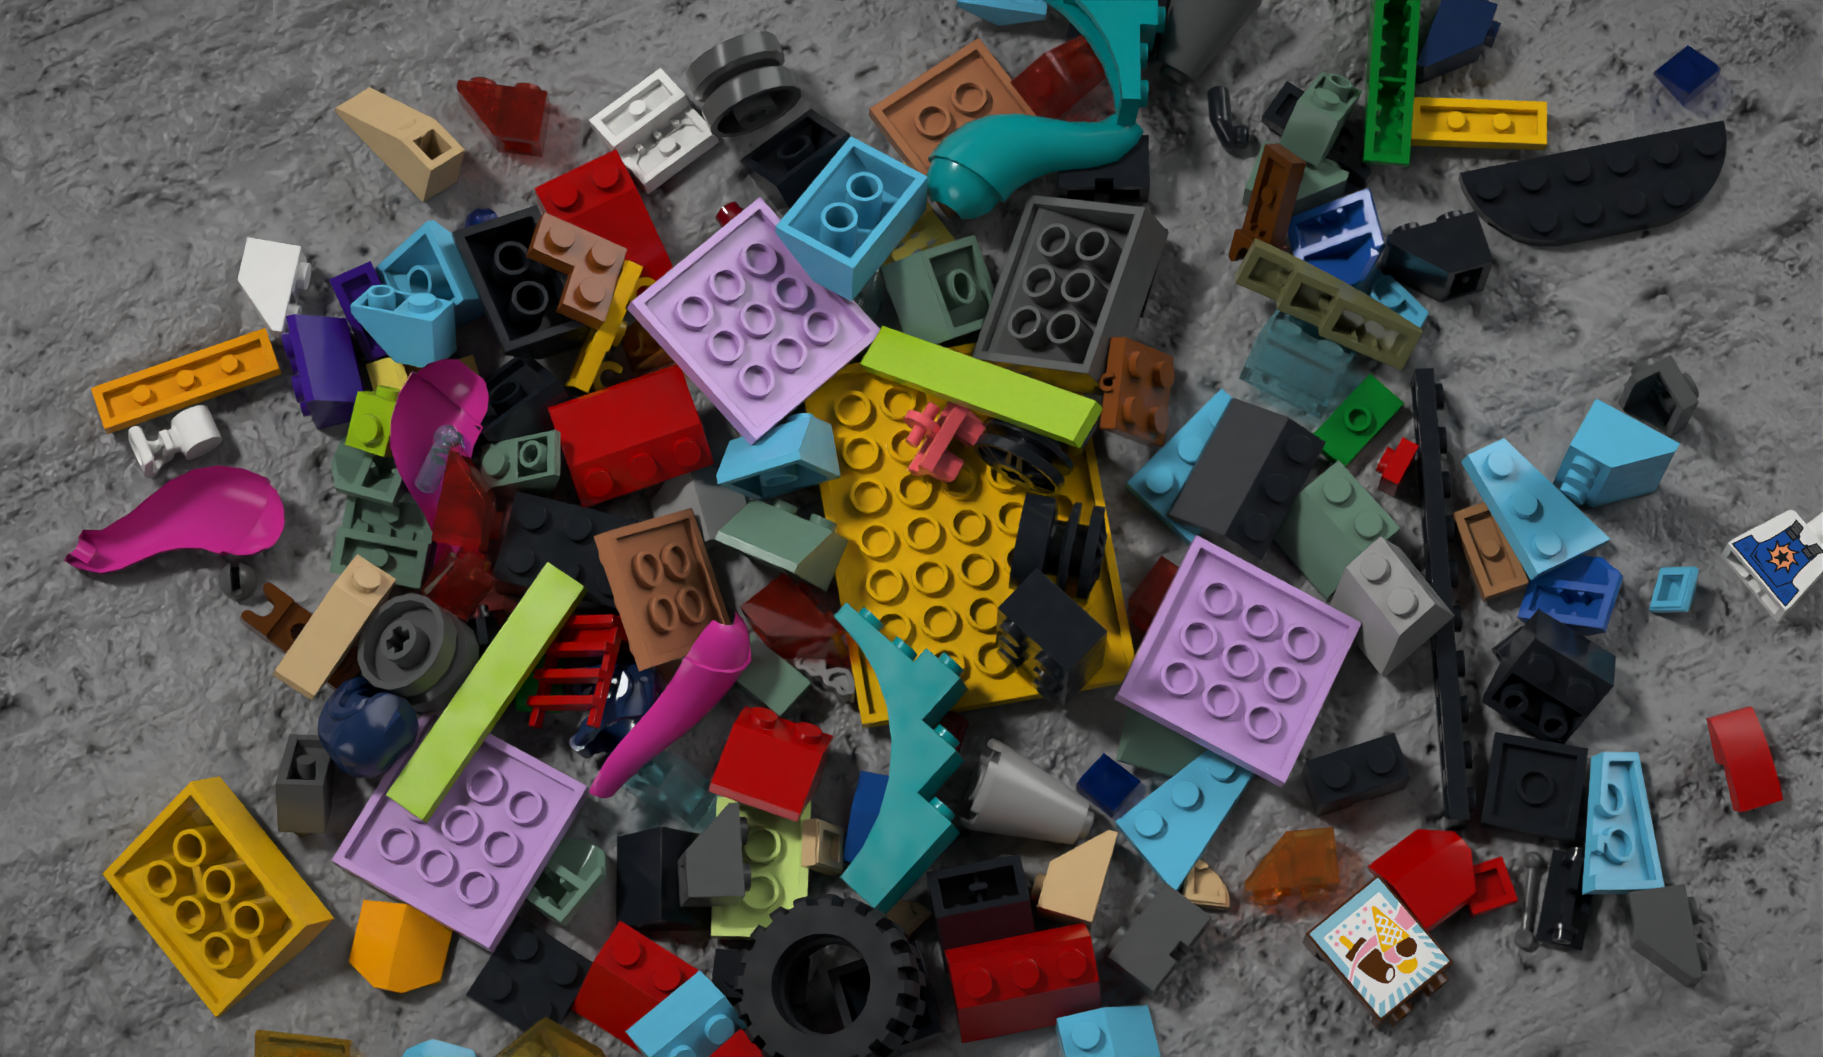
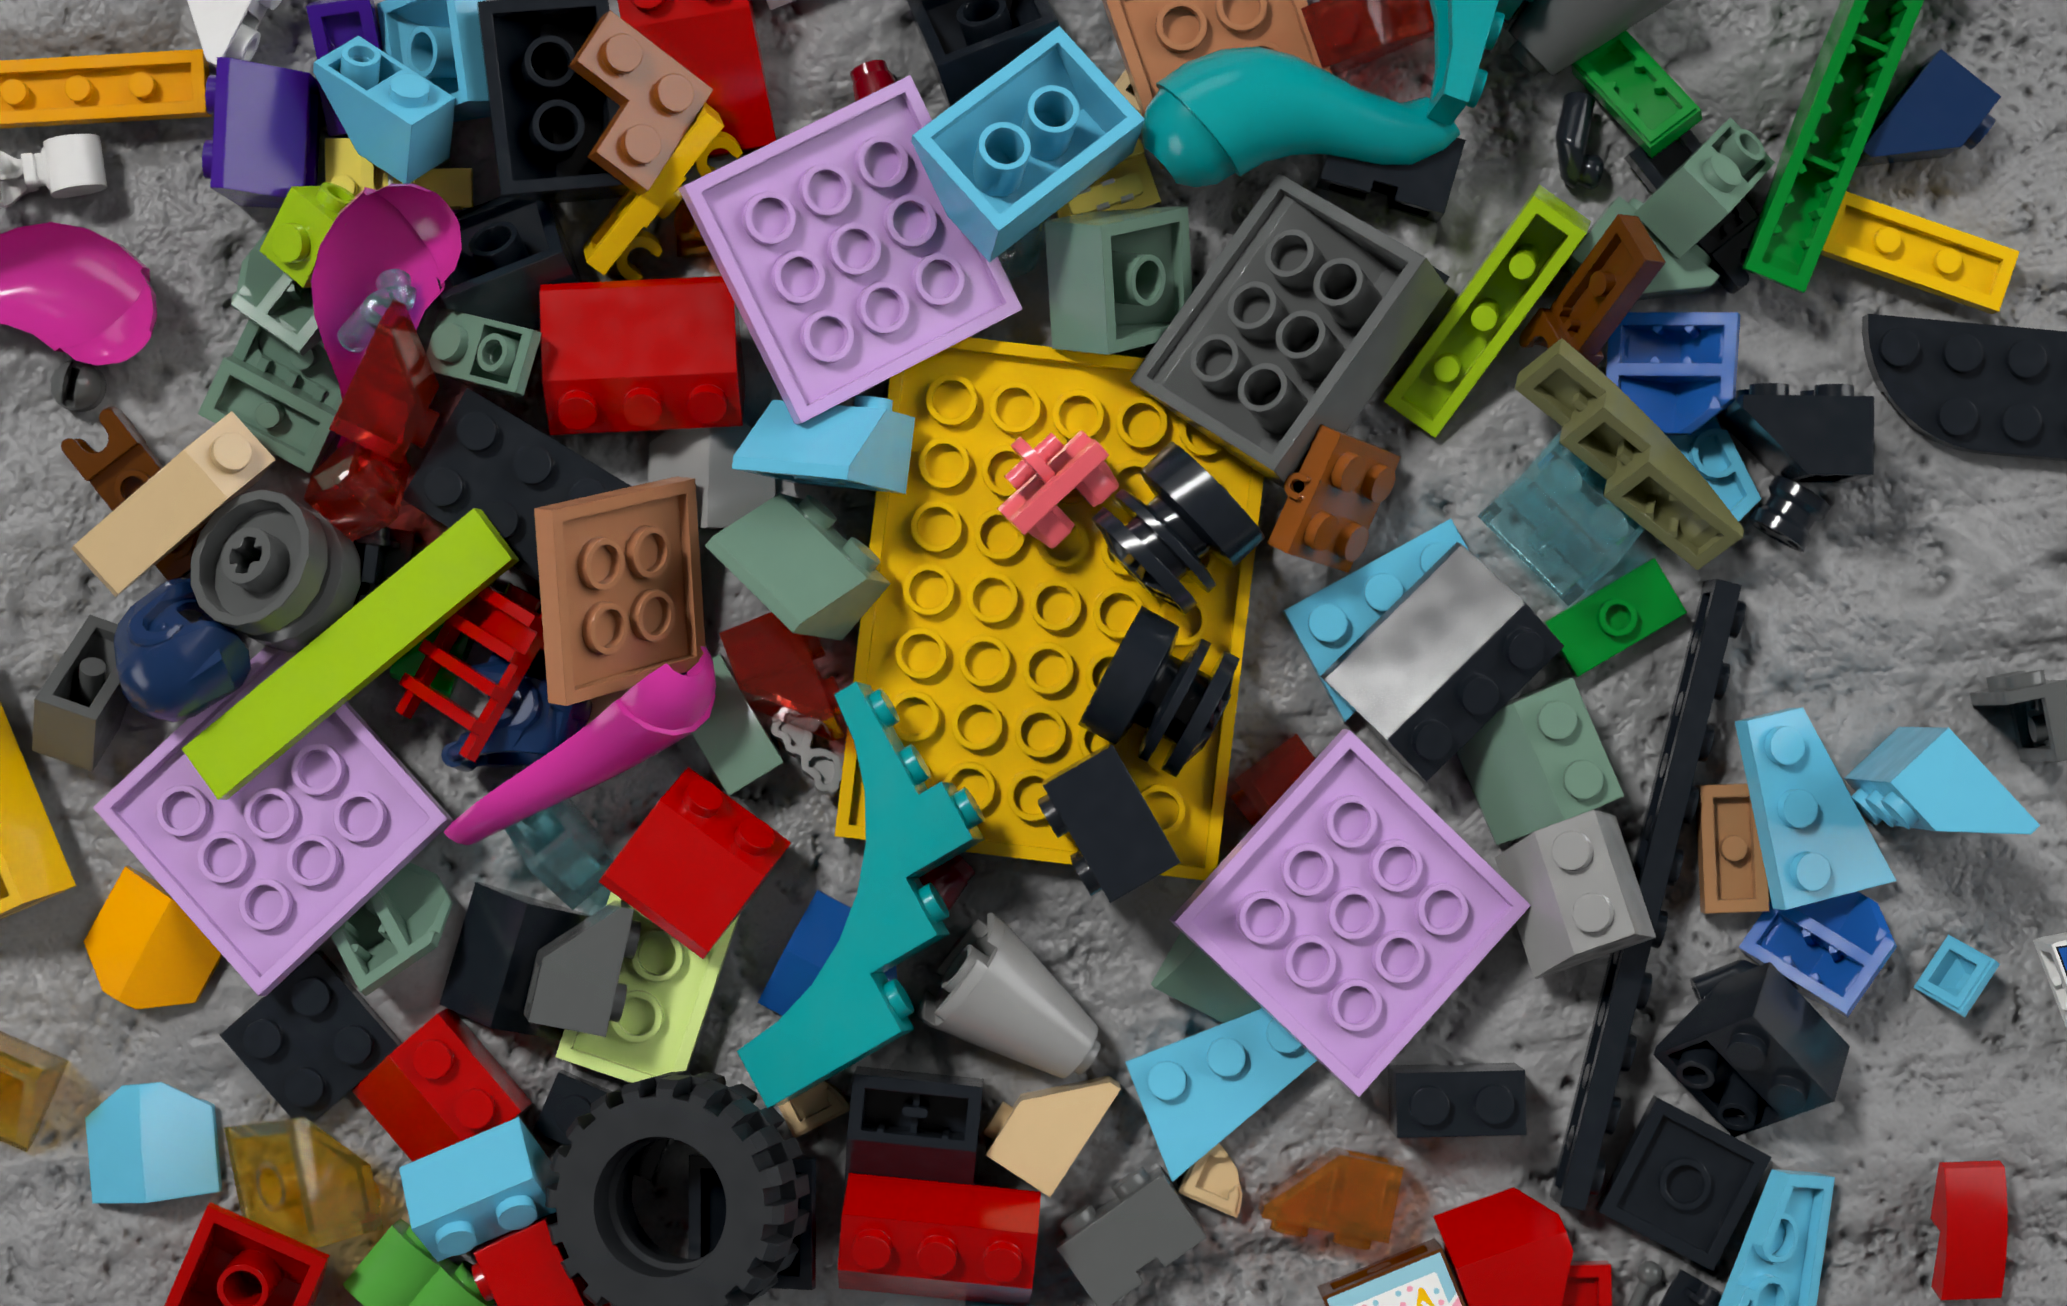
camera: 15 degrees right, 15 degrees up
(822, 846) = (734, 982): tan tile -> none
(982, 386) = (1126, 448): lime tile -> none
(1107, 785) = (1131, 1008): clear blue slope -> none
(1200, 246) = (1488, 310): none -> lime slope
(1254, 74) = (1637, 93): none -> green plate
(1395, 465) = (1646, 697): red plate -> none
(1451, 316) = (1789, 513): none -> black wheel

